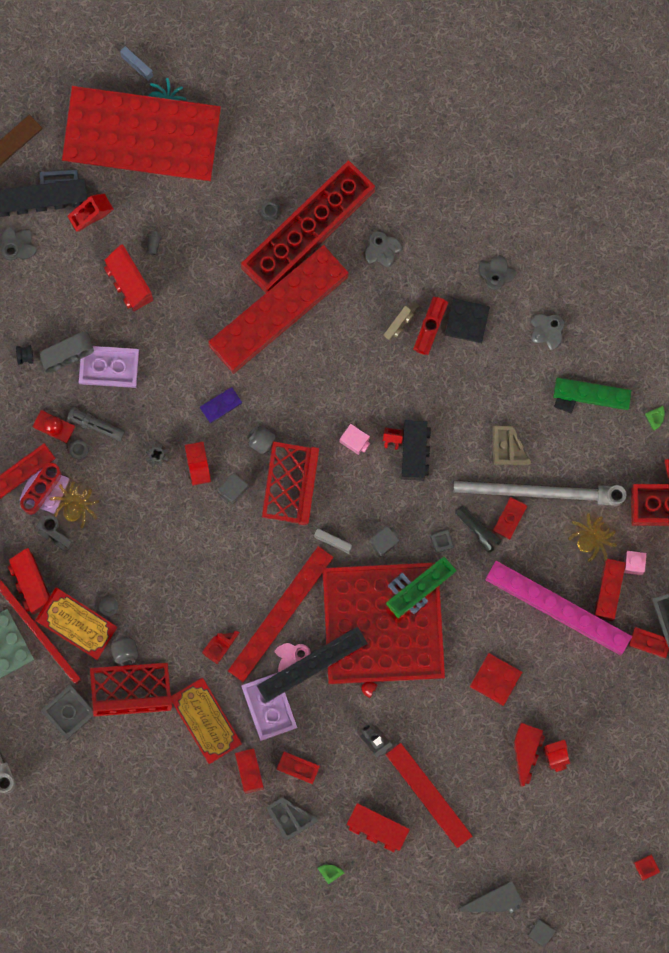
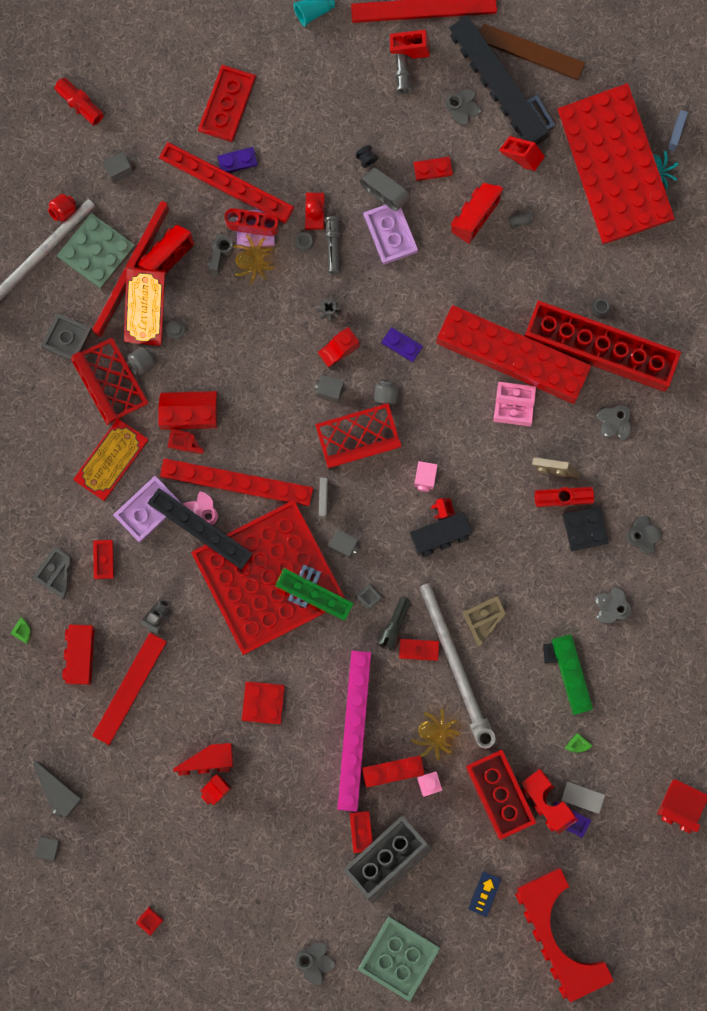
camera: 70 degrees right, 0 degrees up
(65, 300) = (432, 168): none -> red plate
(191, 627) = (187, 410): none -> red slope
(249, 771) = (78, 516): red brick -> none
(316, 325) = (517, 396): none -> bright pink slope
(368, 688) = (202, 589): red hinge -> none

